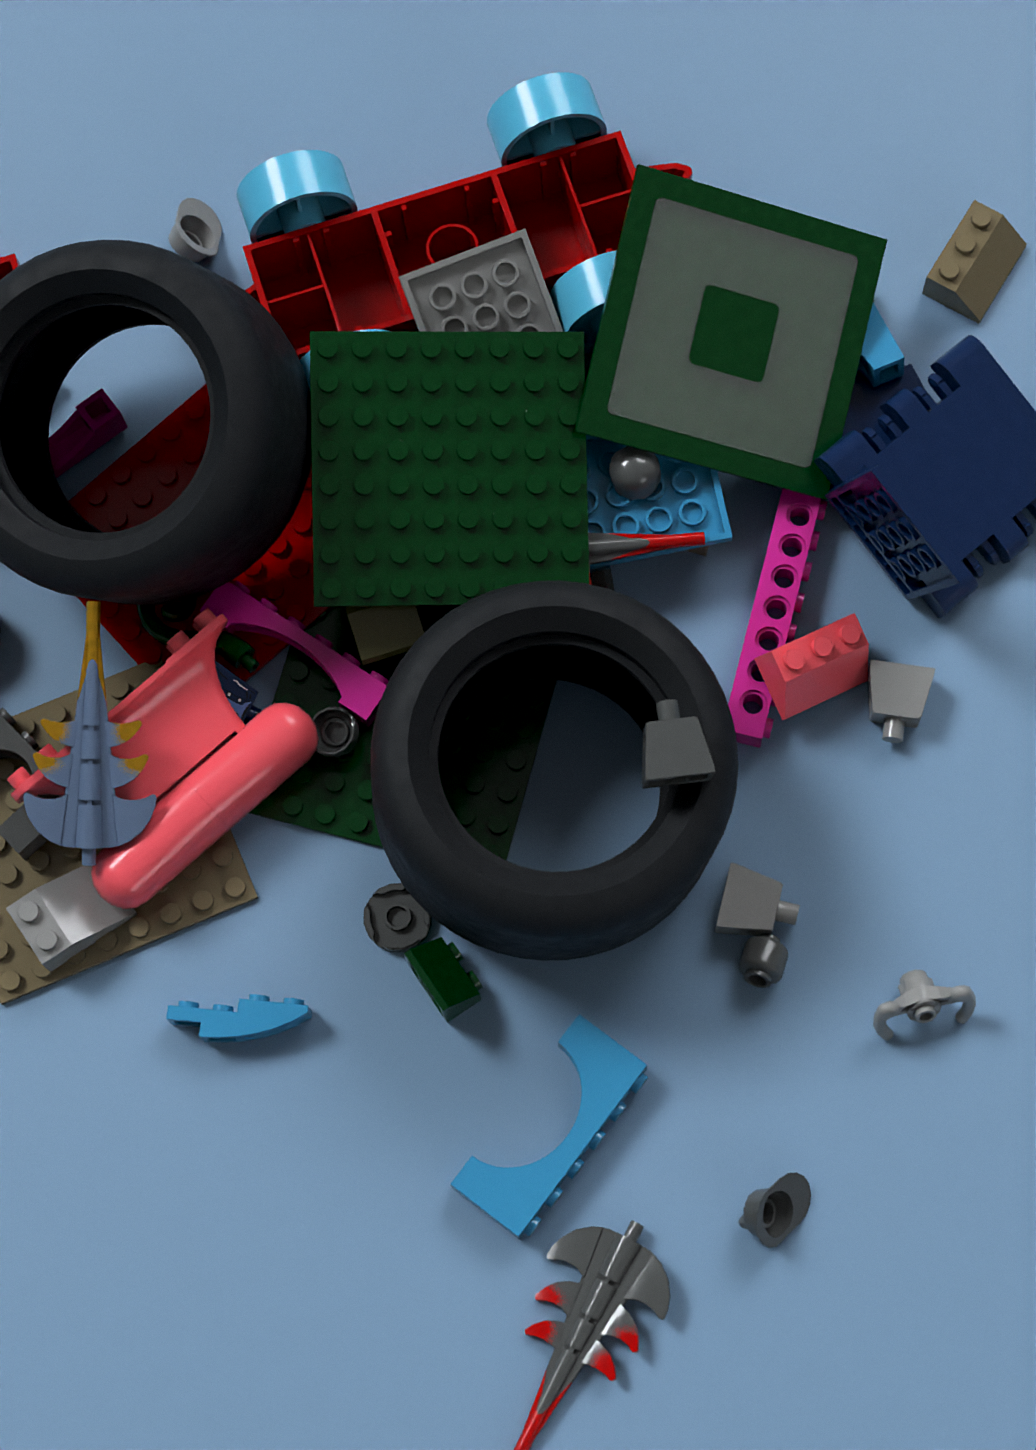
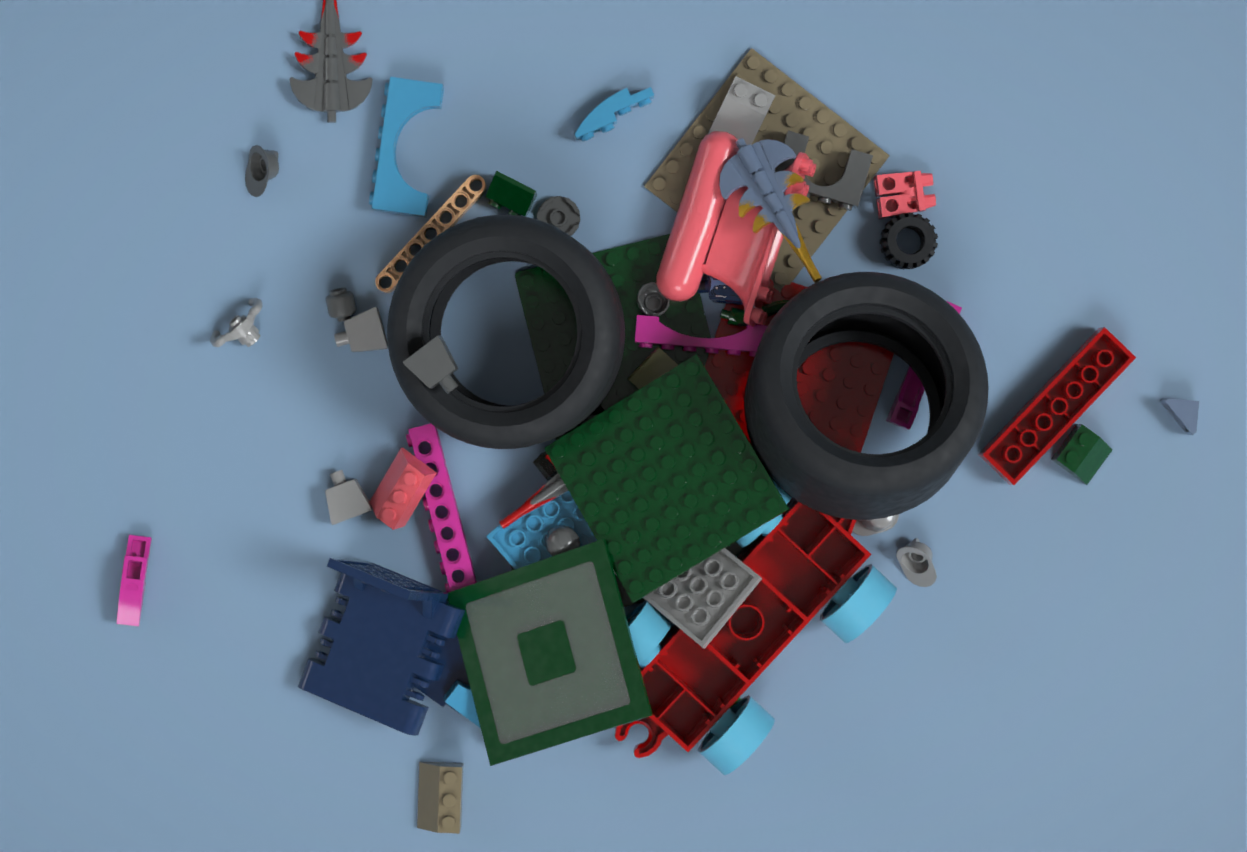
camera: 145 degrees right, 15 degrees up
(597, 975) = (435, 223): none -> light nougat beam

